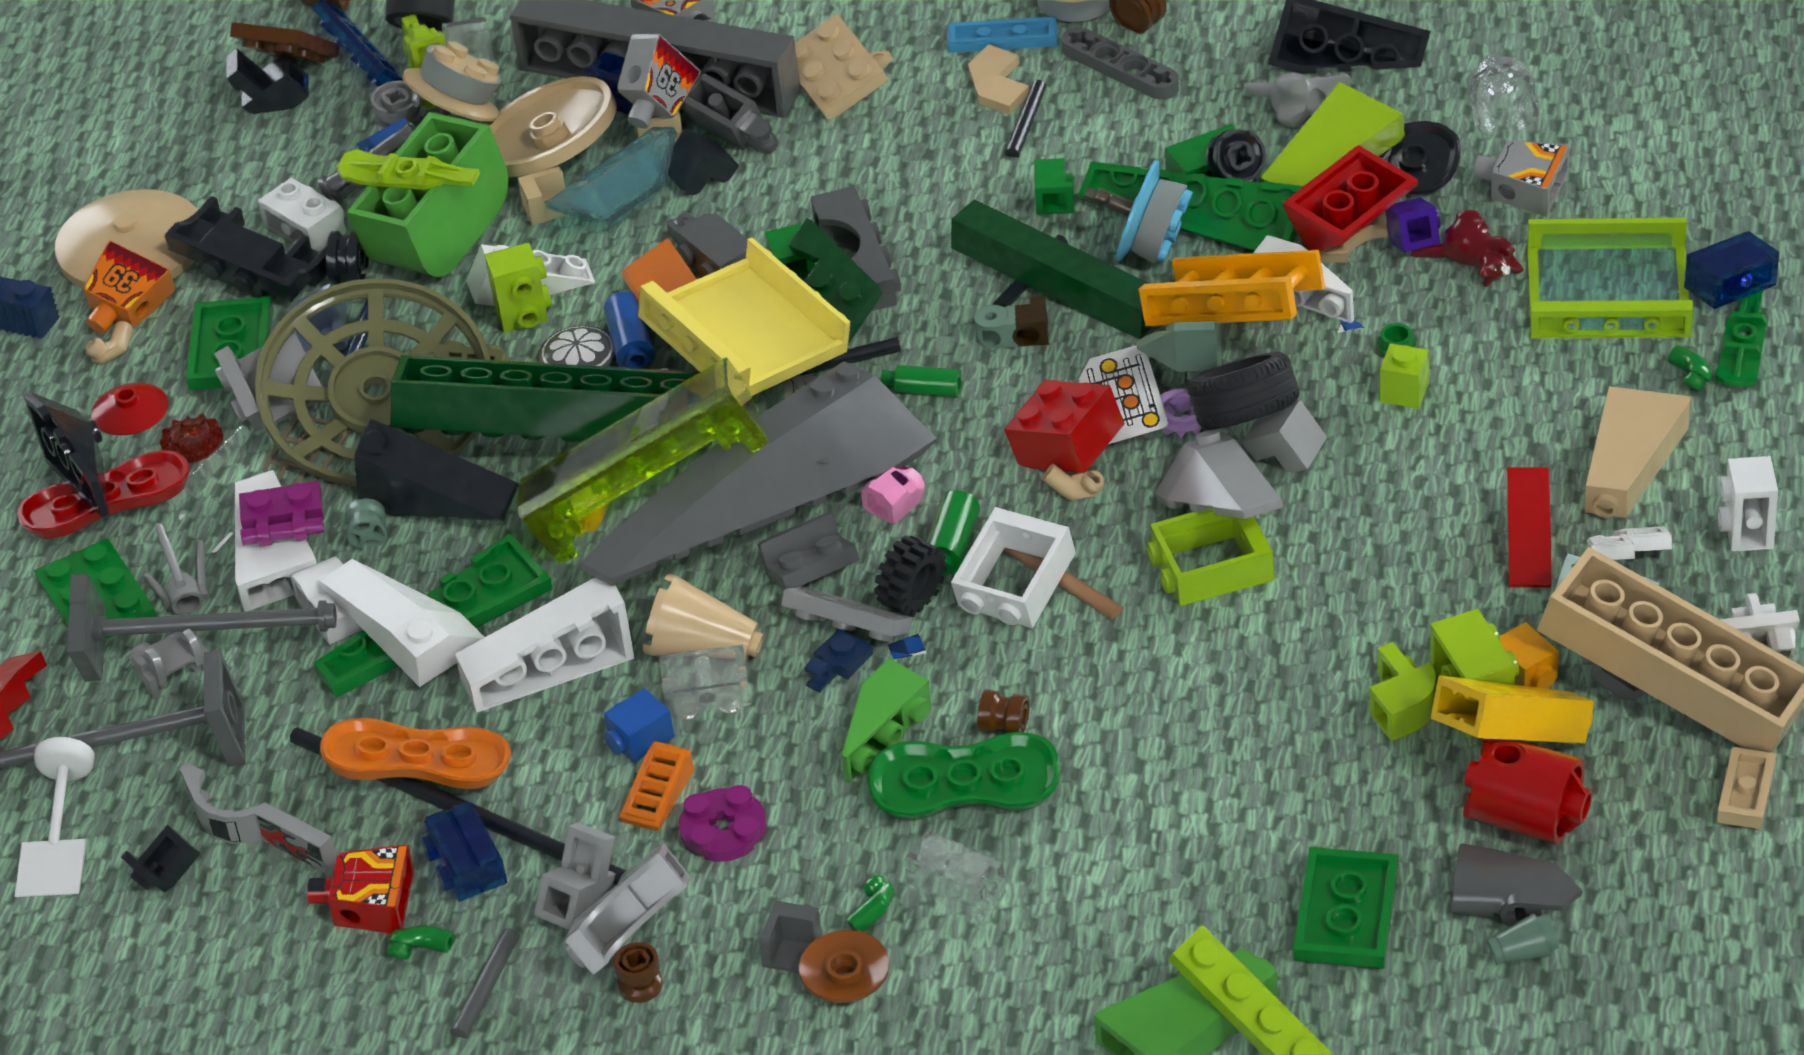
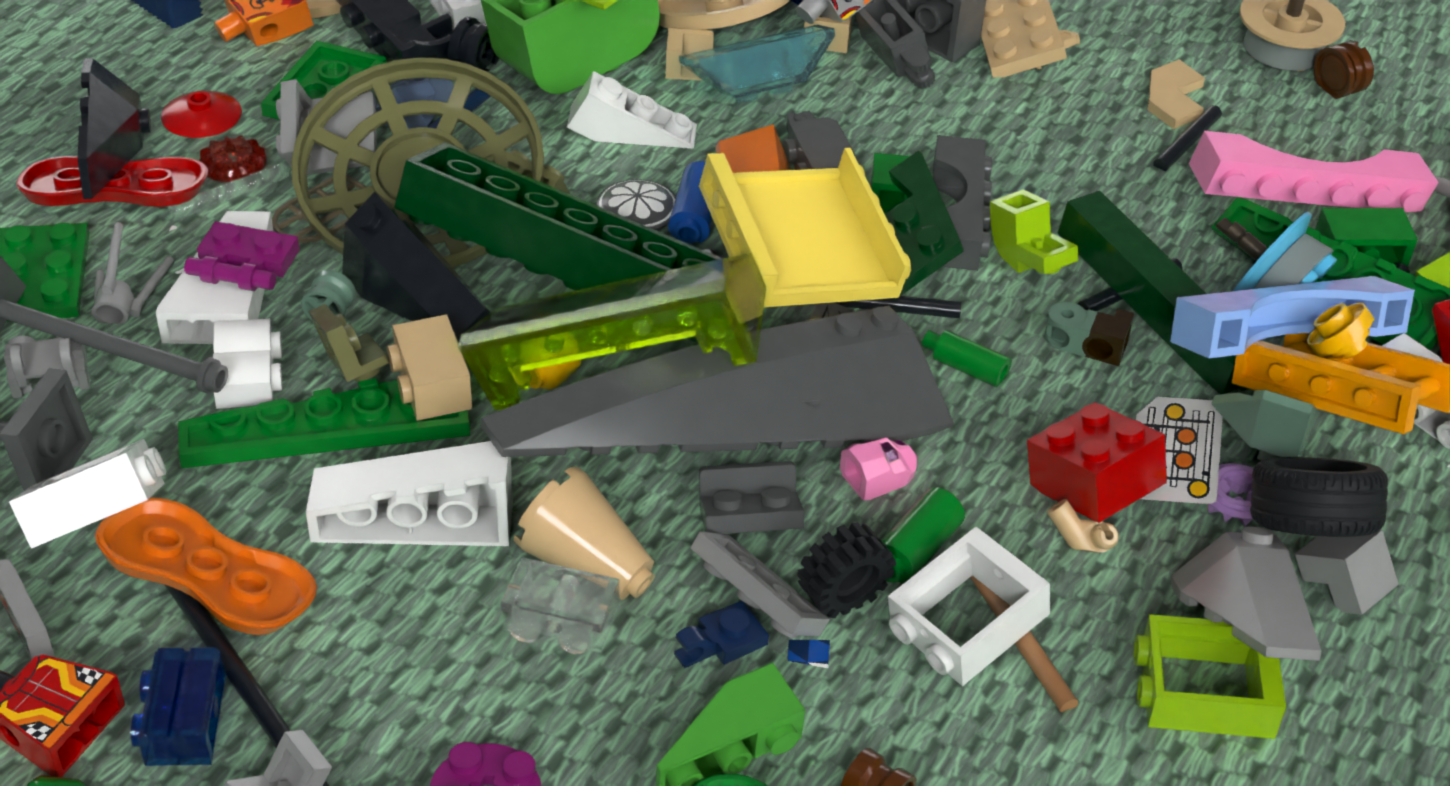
camera: 15 degrees right, 0 degrees up
(115, 347) = (225, 56): tan arm -> none
(296, 731) = (88, 492): none -> white window
(405, 623) = (289, 411): white wedge -> none
(412, 554) = (352, 355): none -> olive bracket
(498, 544) = (430, 367): none -> tan brick
(517, 287) = (608, 123): lime brick -> none
(637, 724) = (458, 629): blue brick -> none
(662, 762) = (443, 688): orange slope -> none
(697, 160) = (846, 69): black piece -> none
(925, 262) = (1024, 234): none -> lime brick
(1002, 34) = (1197, 55): dark azure tile -> none
(1053, 187) = (1187, 210): green brick -> none
(1088, 46) = (1278, 92): dark grey beam -> none
(1088, 135) = (1246, 169): none -> bright pink arch
(1129, 274) = (1234, 320): none -> light blue arch
(1216, 252) = (1341, 330): none -> yellow plate
(1236, 155) = (1397, 238): black wheel -> none

